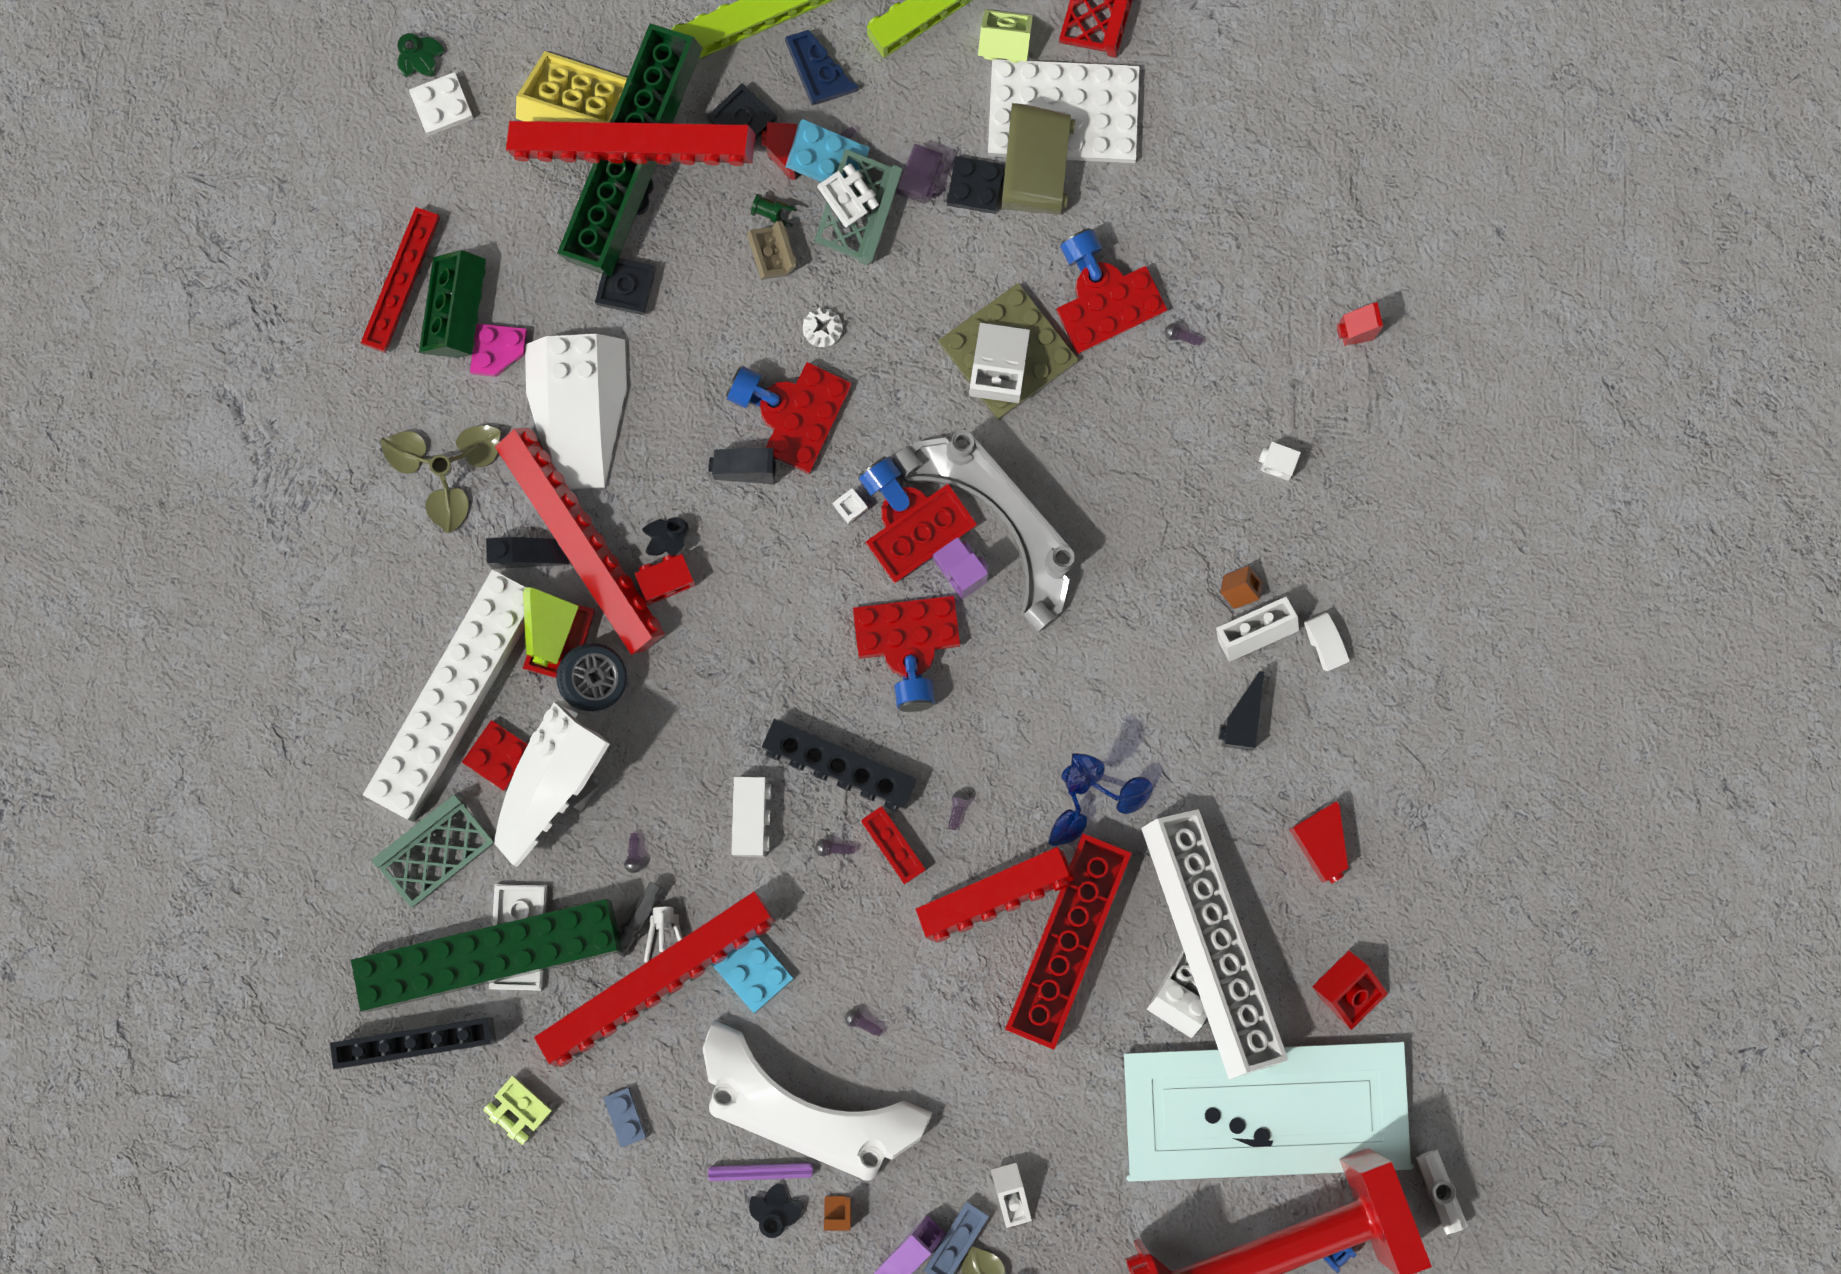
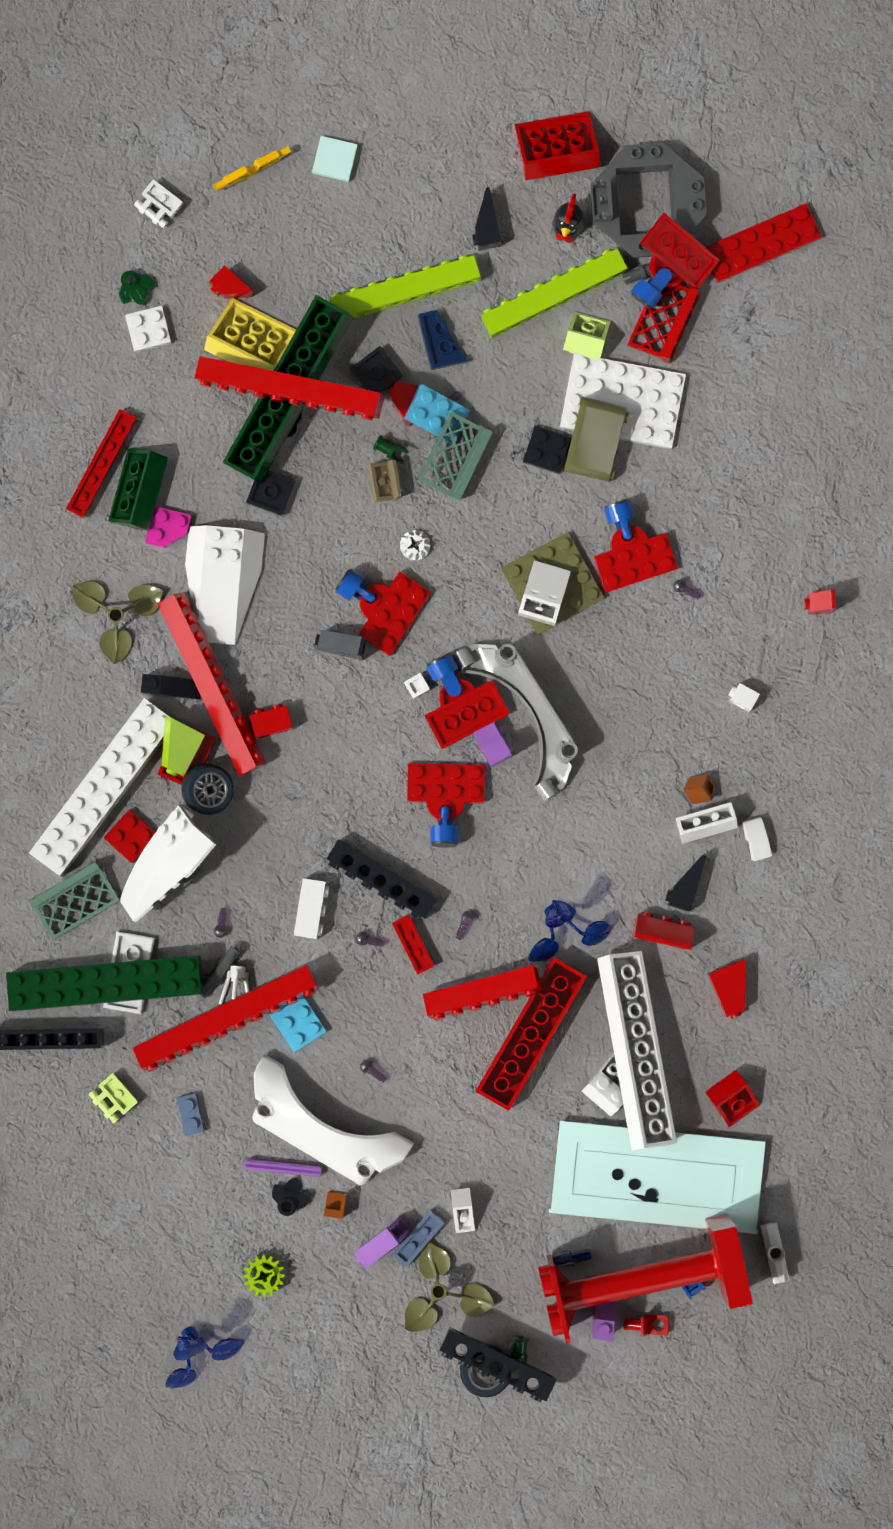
camera: 10 degrees right, 5 degrees up
(538, 35) = (229, 285): none -> red slope
(666, 536) = (274, 689): black plate -> none
(842, 198) = (443, 450): white plate -> none
(920, 174) = (505, 436): clear purple brick -> none
(1169, 1239) = (571, 1258): none -> dark blue axle
(1223, 780) = (664, 931): none -> red slope

